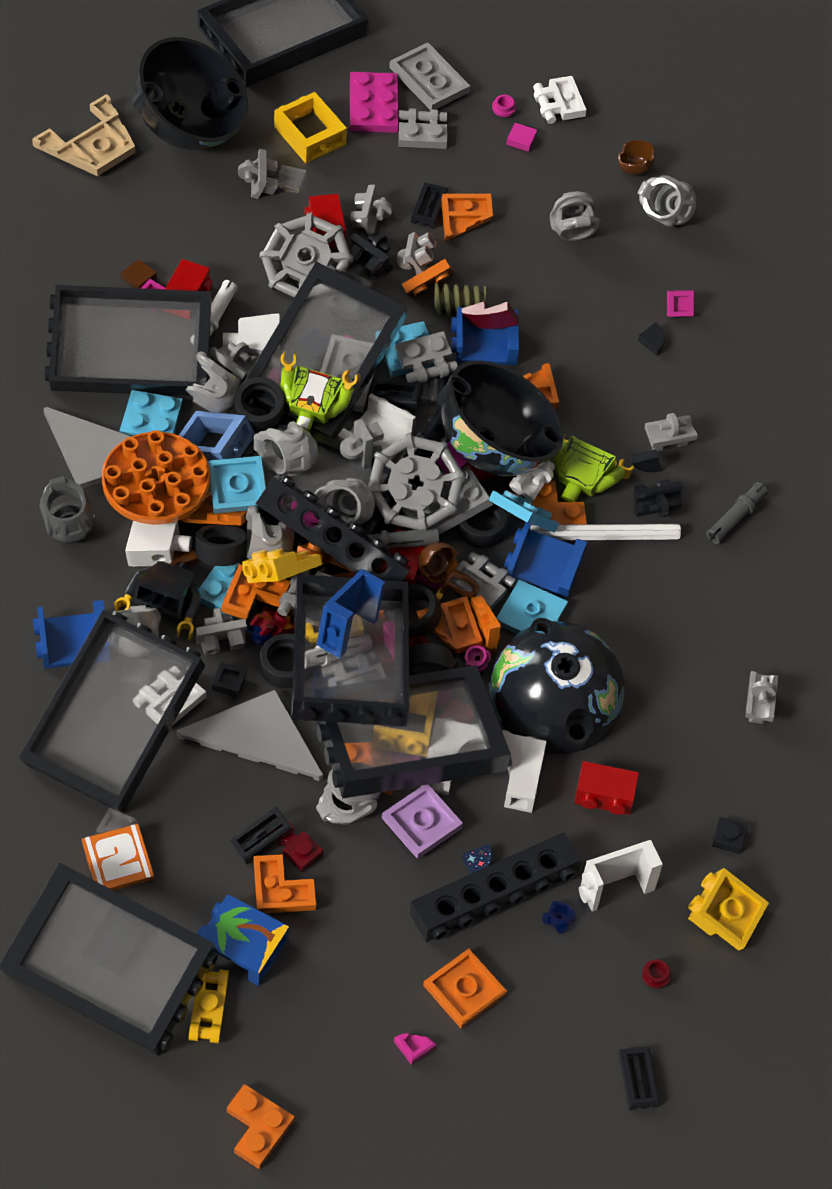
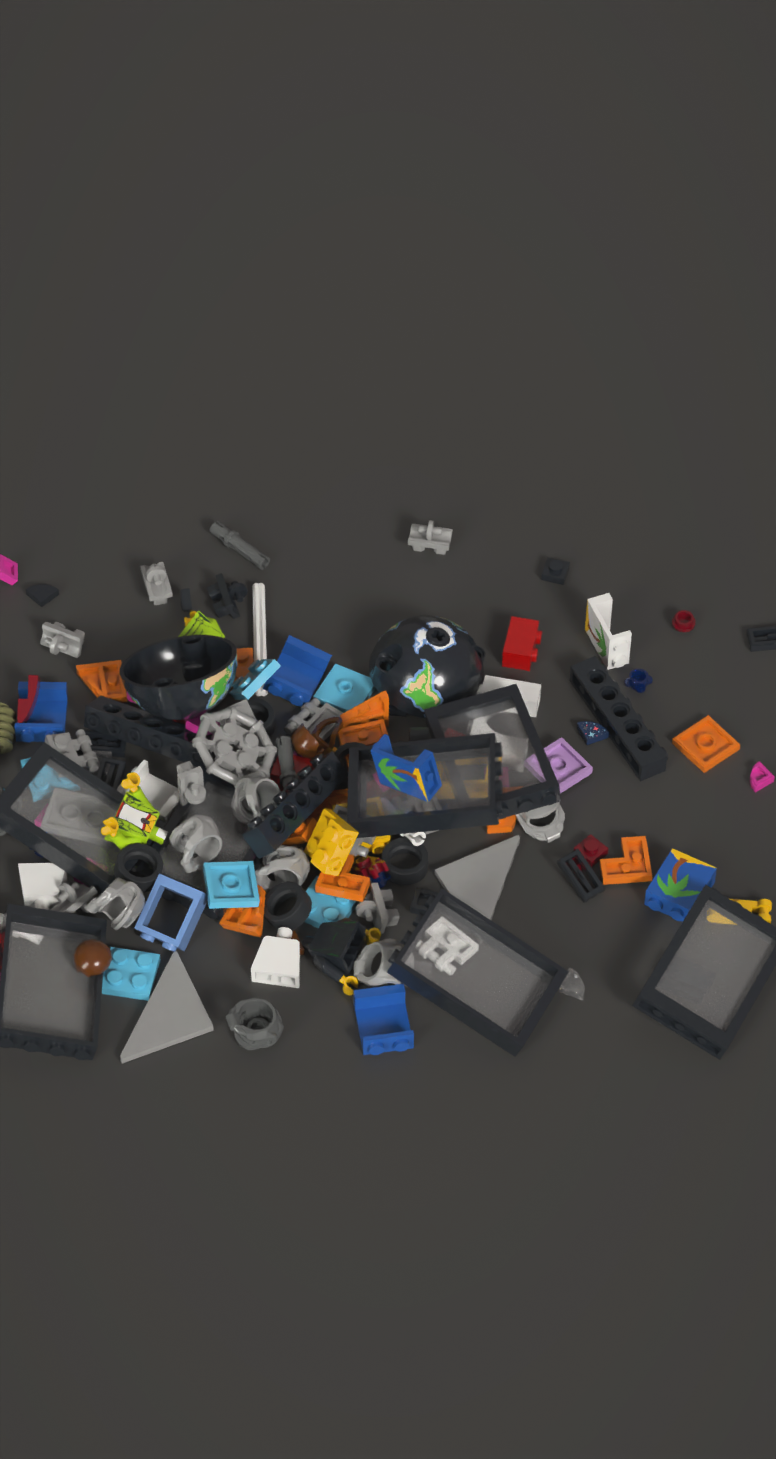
camera: 85 degrees left, 5 degrees down
(118, 858) = (609, 978): tile -> none
(154, 370) = (92, 957): none -> reddish brown hair
(156, 478) = (228, 943): orange bracket -> none
(473, 652) = (401, 725): dark pink plate -> none
(583, 350) = (62, 639): none -> light grey hips
(727, 908) = (625, 572): yellow plate -> none

